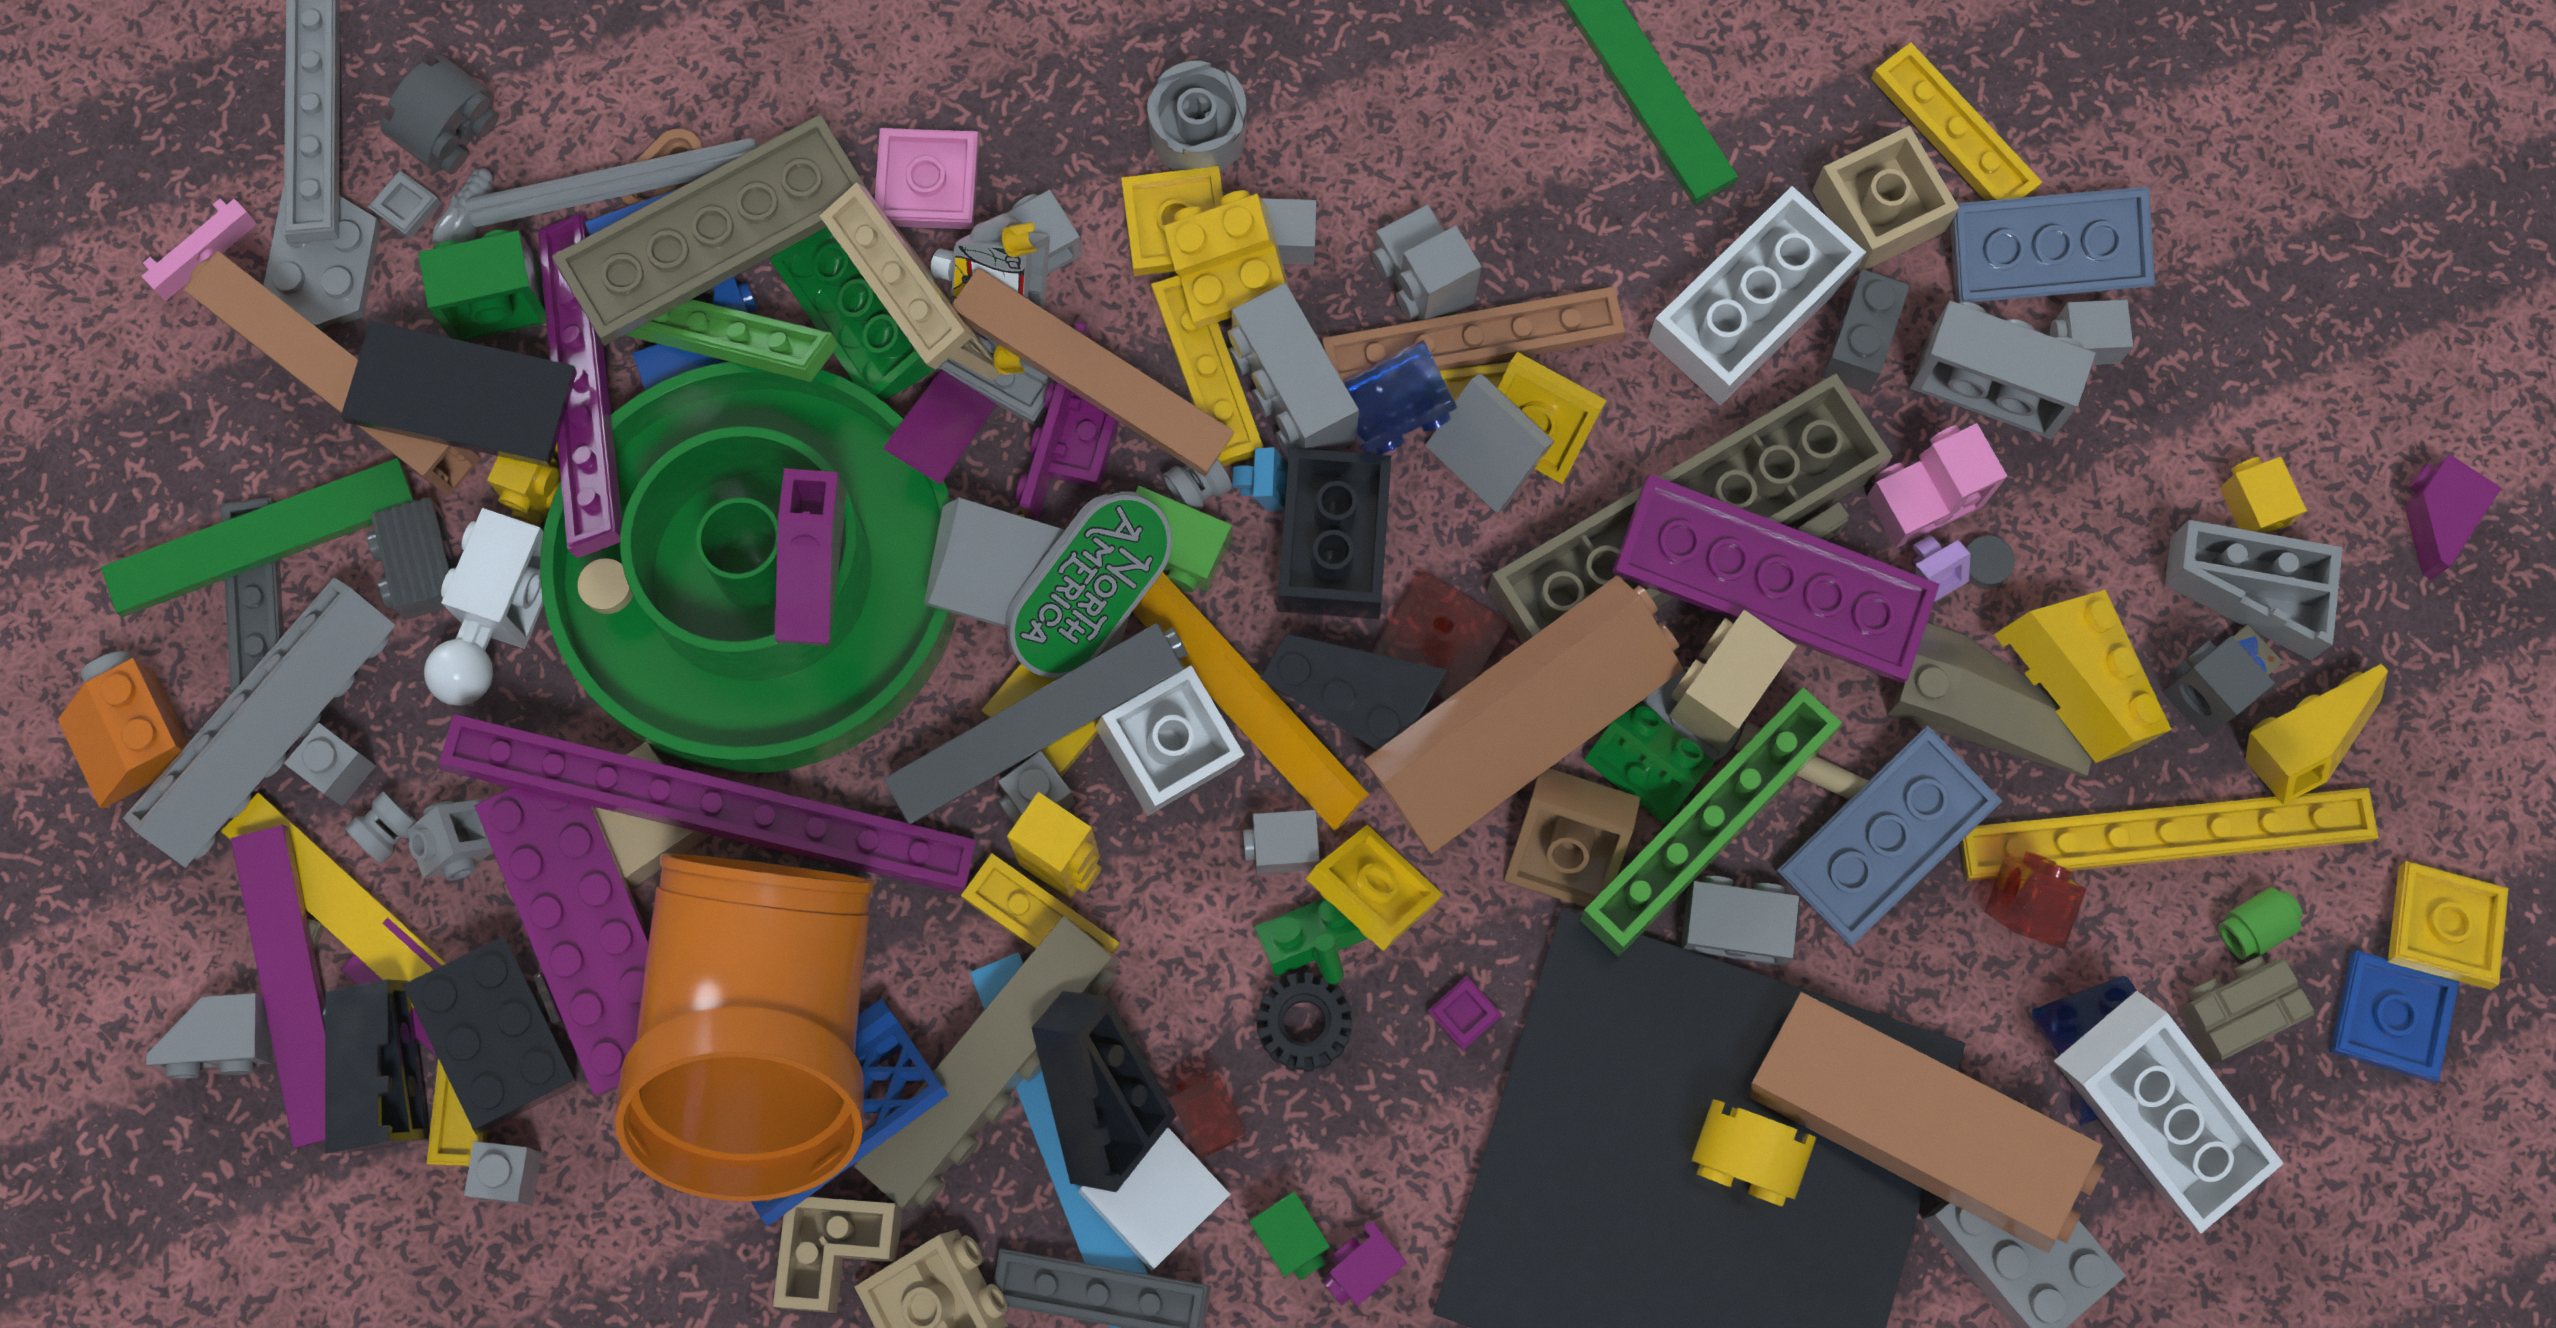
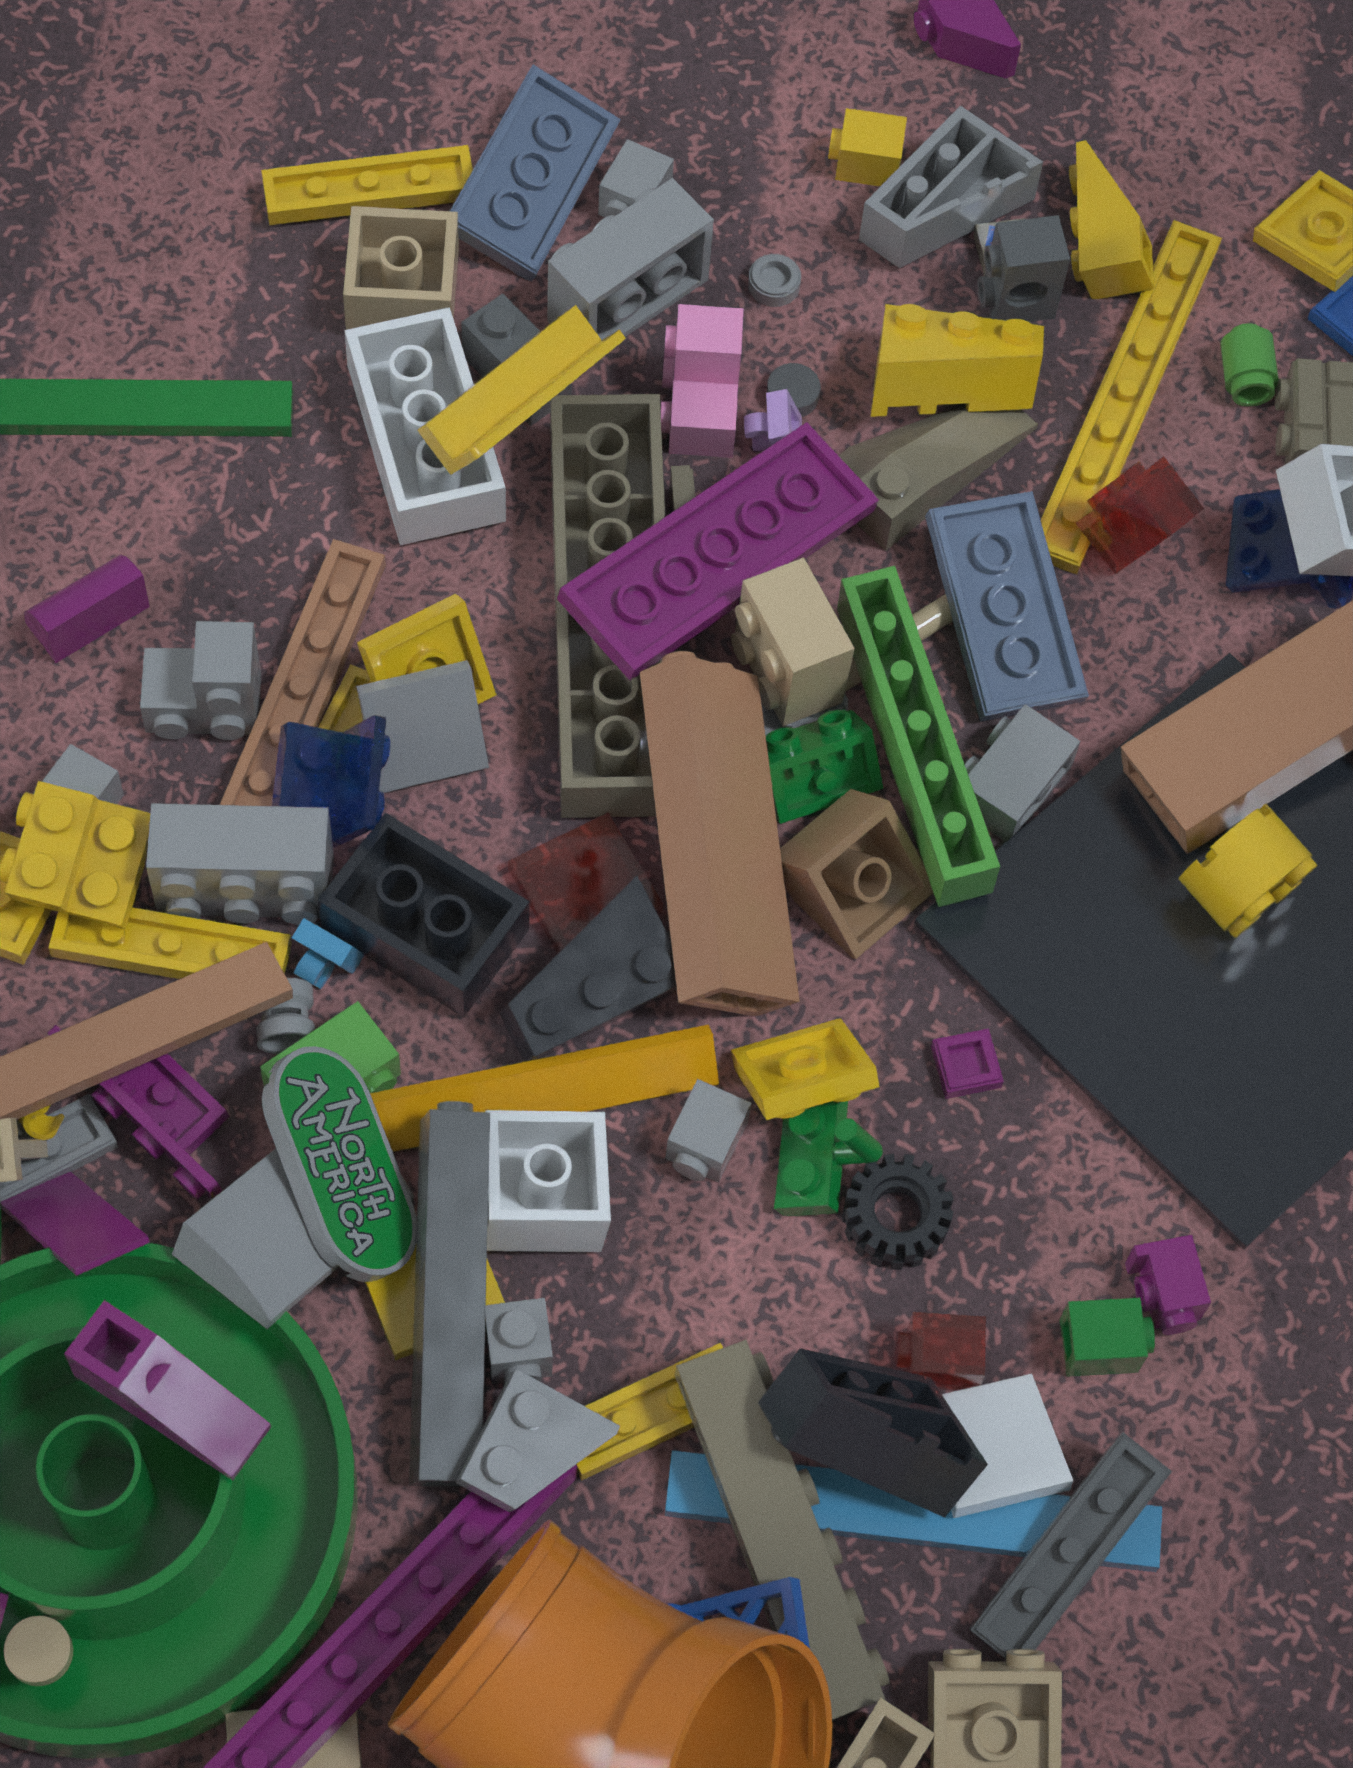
camera: 65 degrees left, 10 degrees down
(955, 843) = (530, 1442): none -> light grey wing
(1055, 847) = (600, 1336): yellow brick -> none
(1444, 146) = (88, 607): none -> magenta brick
(1818, 343) = (515, 389): none -> yellow panel
(2084, 491) = (774, 280): none -> light grey tile

